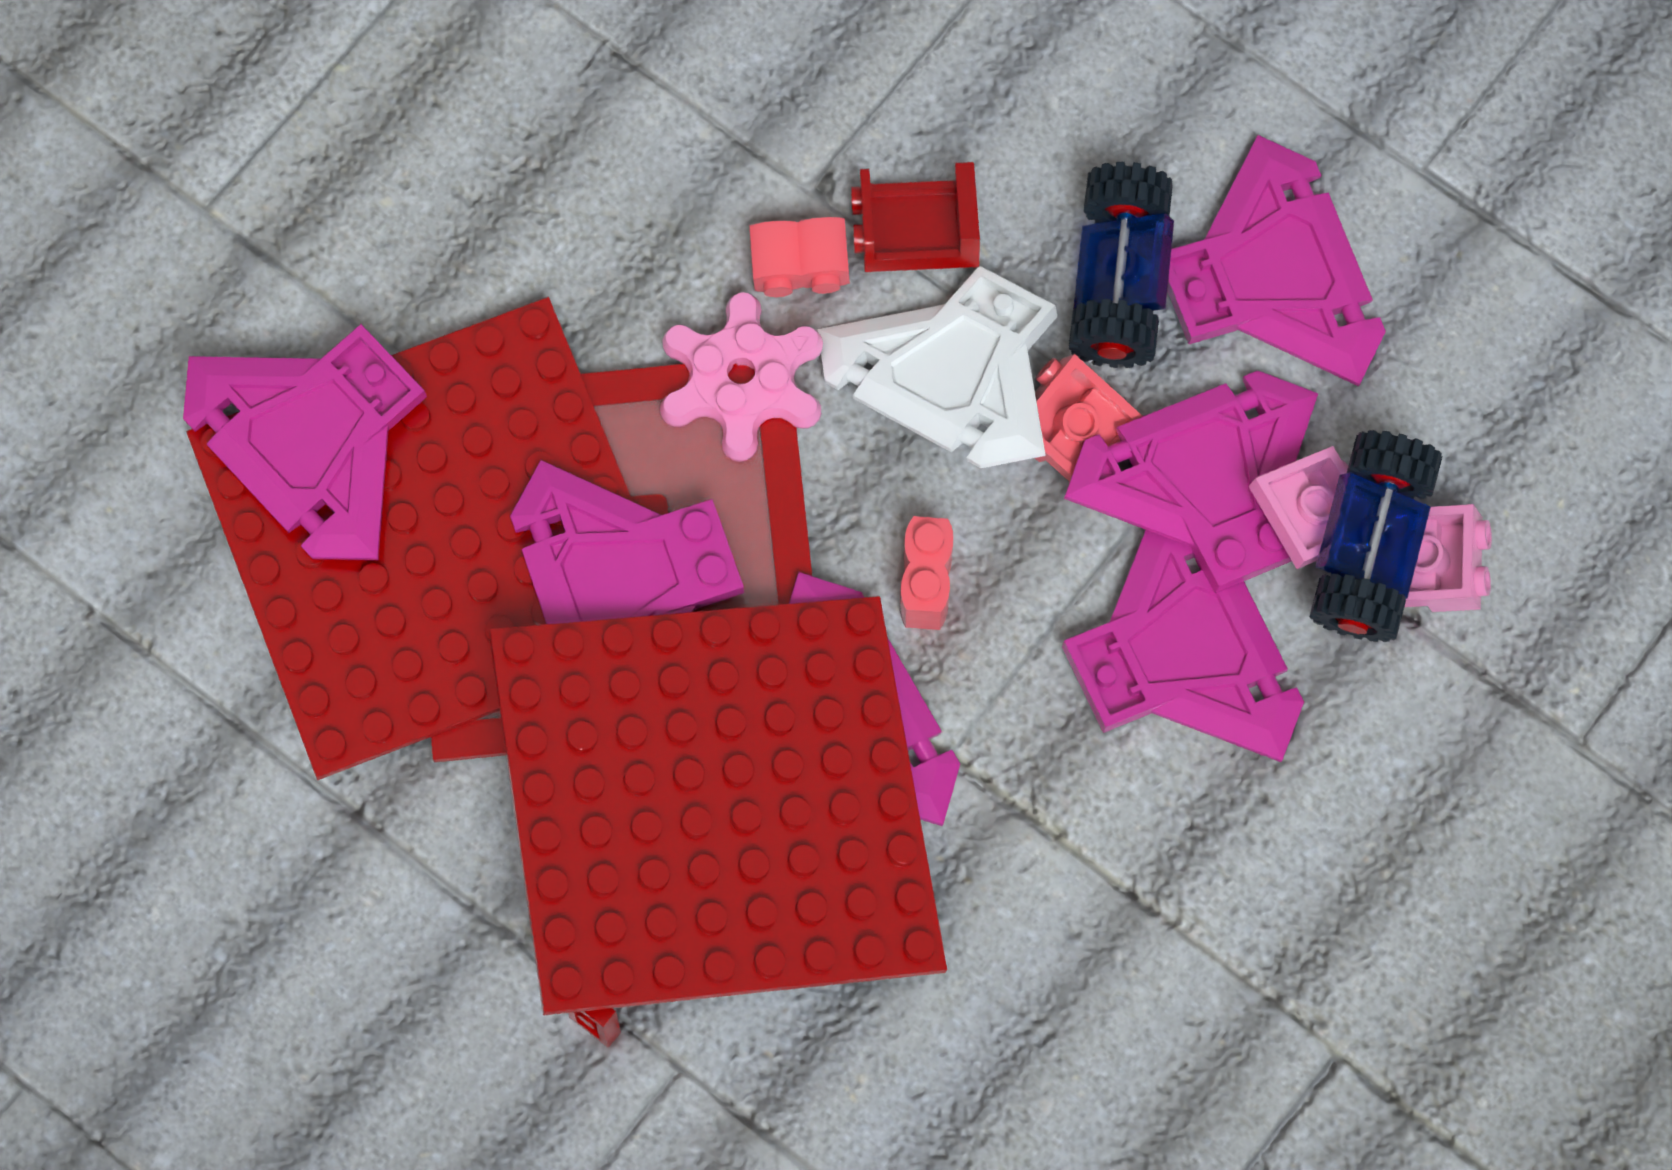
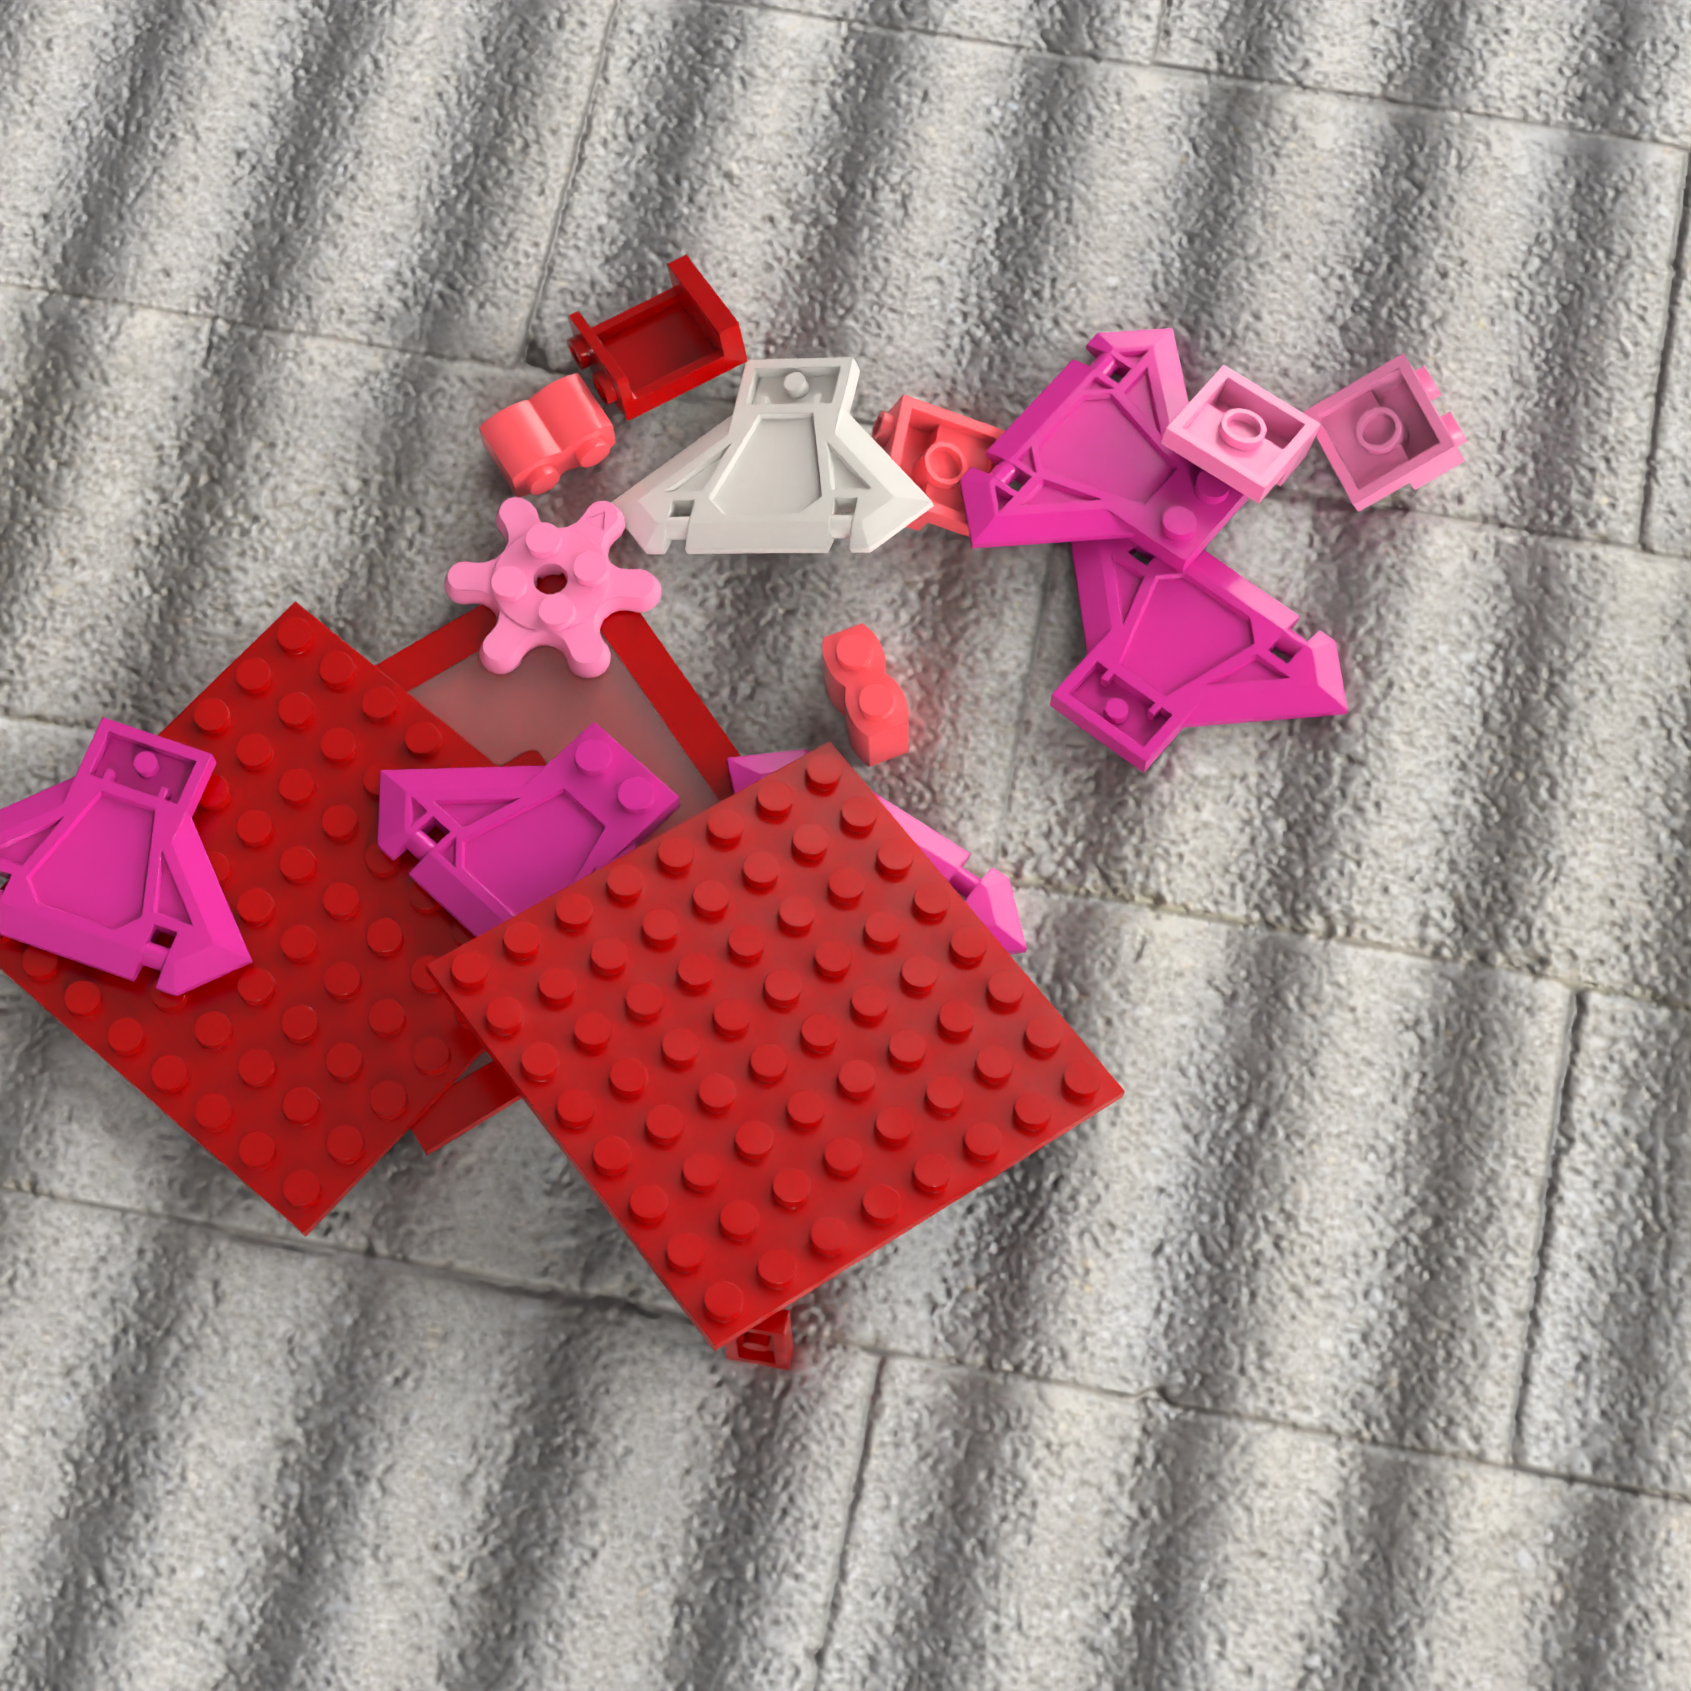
camera: 25 degrees left, 5 degrees down
(1122, 265) = (900, 286): plate -> none
(1278, 269) = (1059, 226): dark pink plate -> none
(1374, 535) = (1322, 429): plate -> none

